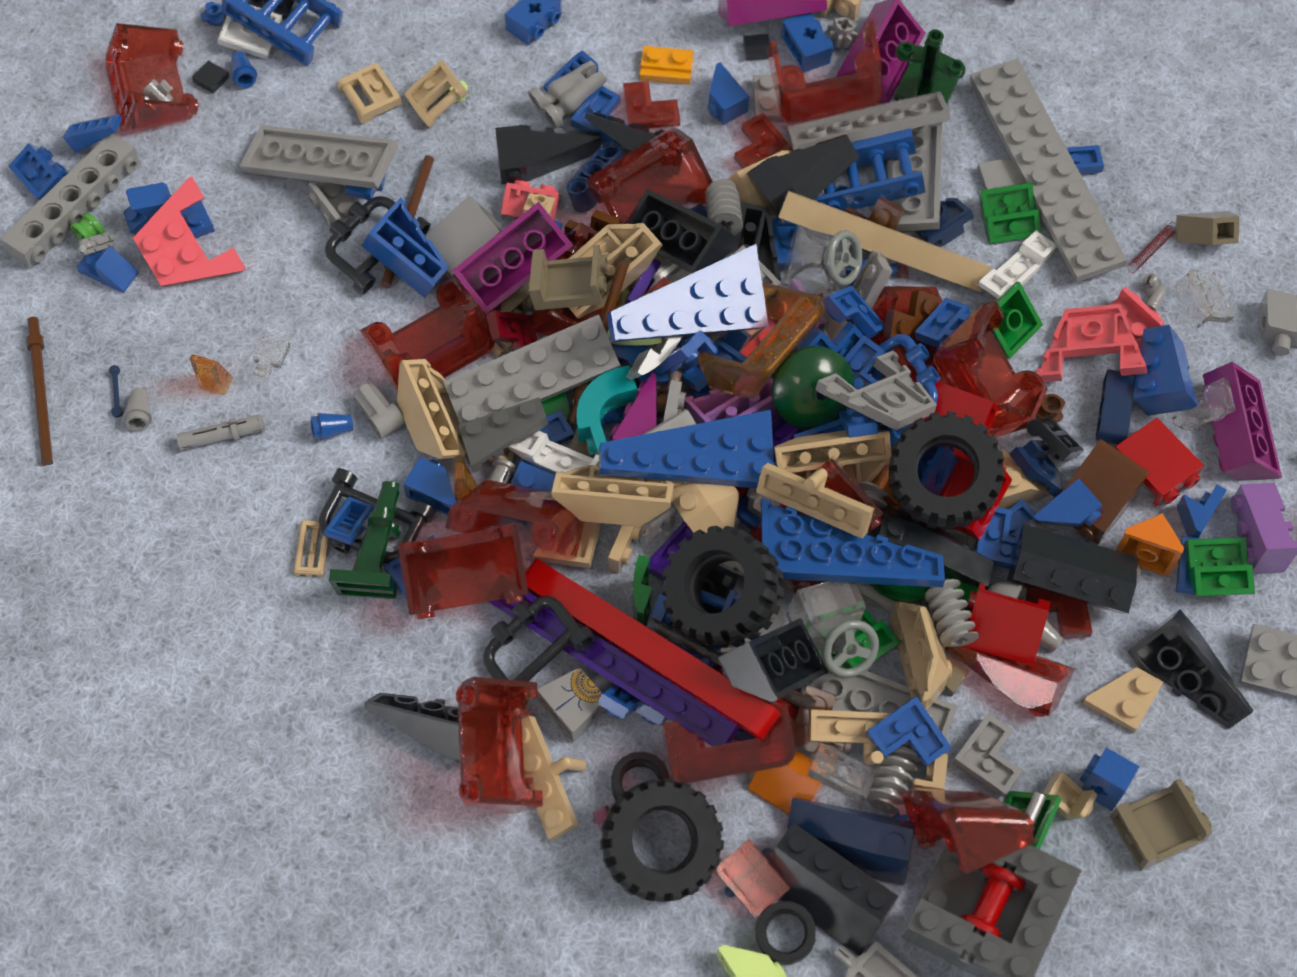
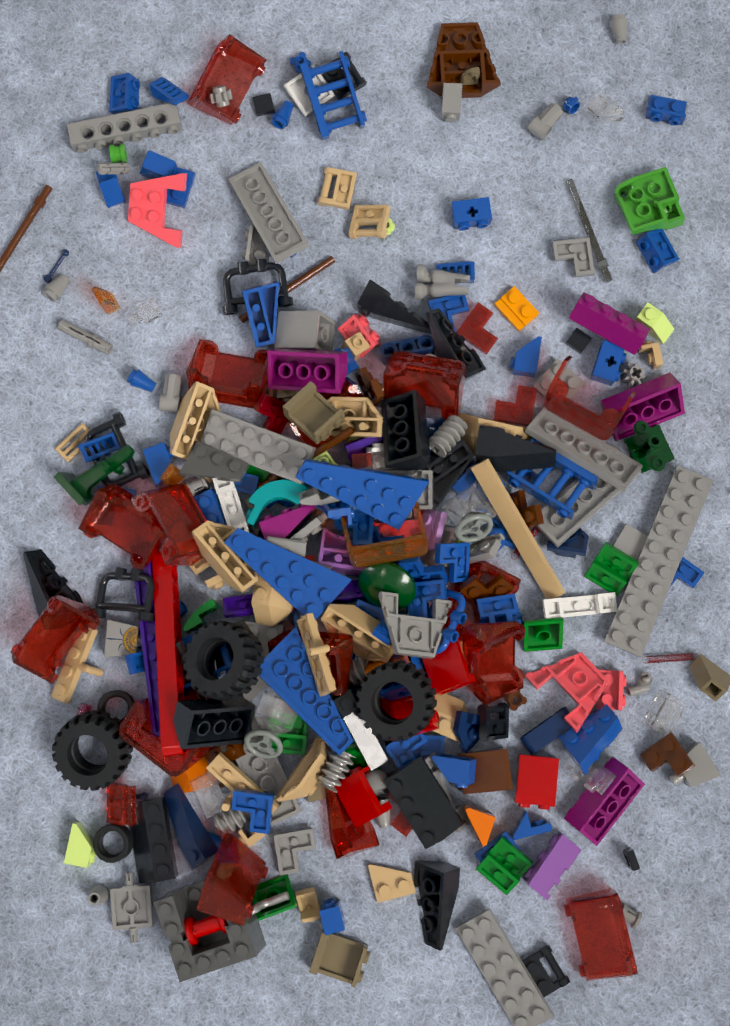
camera: 45 degrees right, 20 degrees up
(1247, 321) = (670, 751): none -> reddish brown plate

